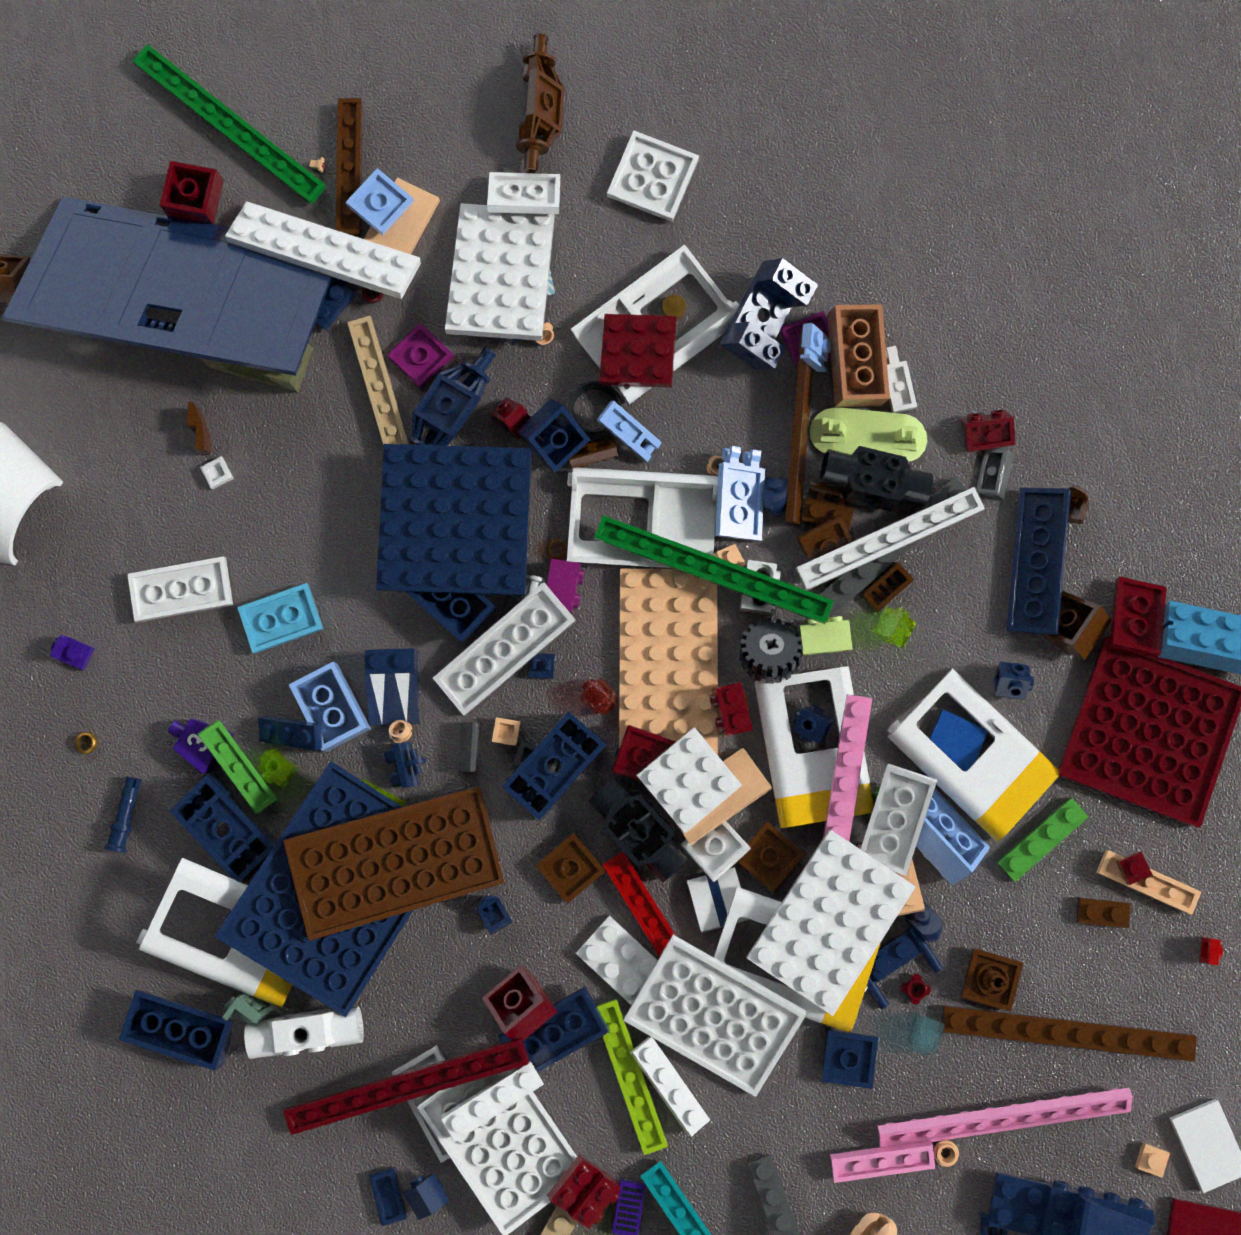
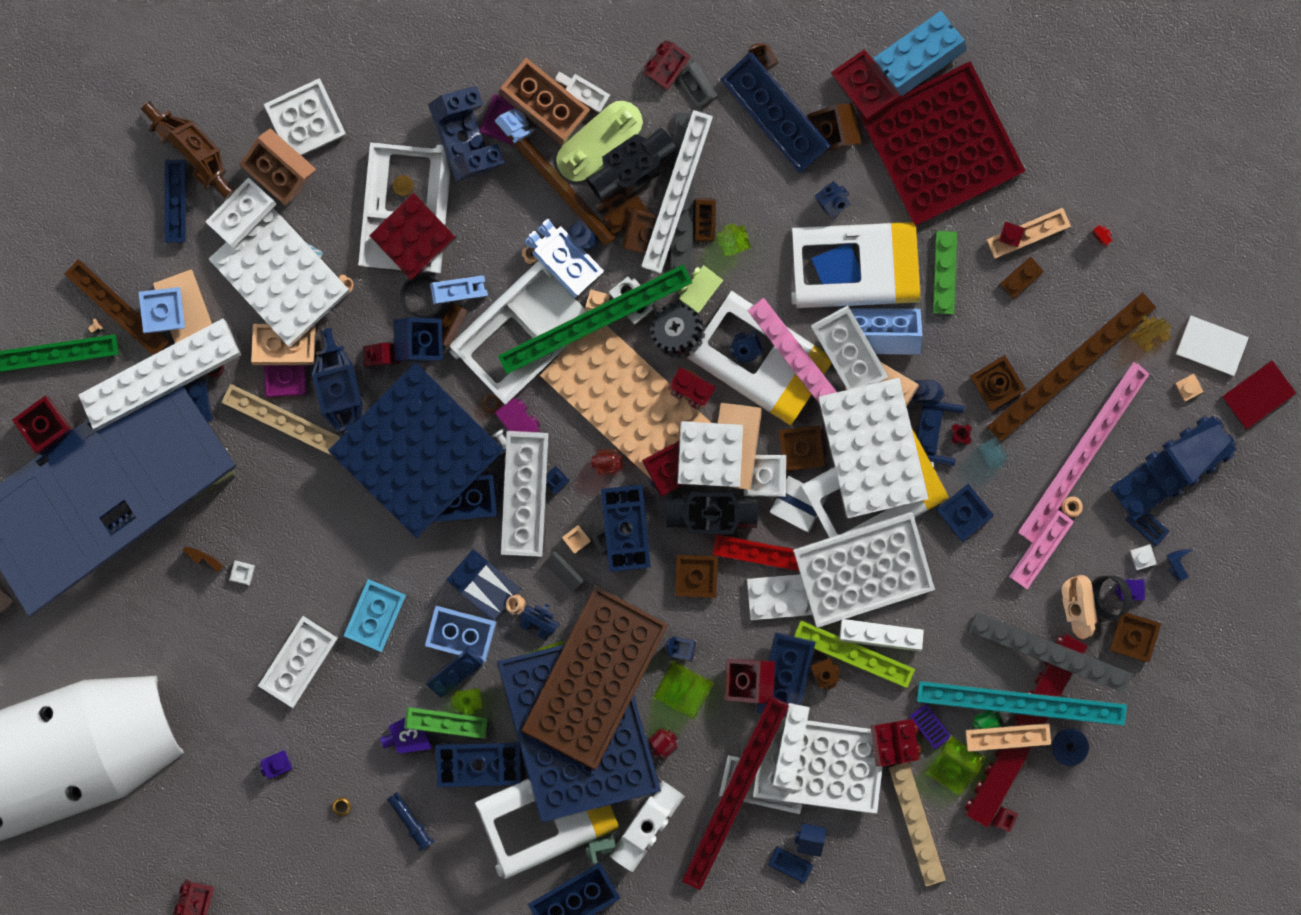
camera: 50 degrees left, 5 degrees up
(393, 977) = (662, 743): none -> dark red head
(429, 322) = (272, 350): none -> light nougat plate
(458, 951) = (683, 690): none -> clear neon green slope
(484, 133) = (175, 201): none -> dark blue plate
(589, 1067) = (826, 674): none -> reddish brown brick
(591, 185) = (277, 166): none -> nougat brick
(1171, 1075) = (1149, 329): none -> clear yellow hips

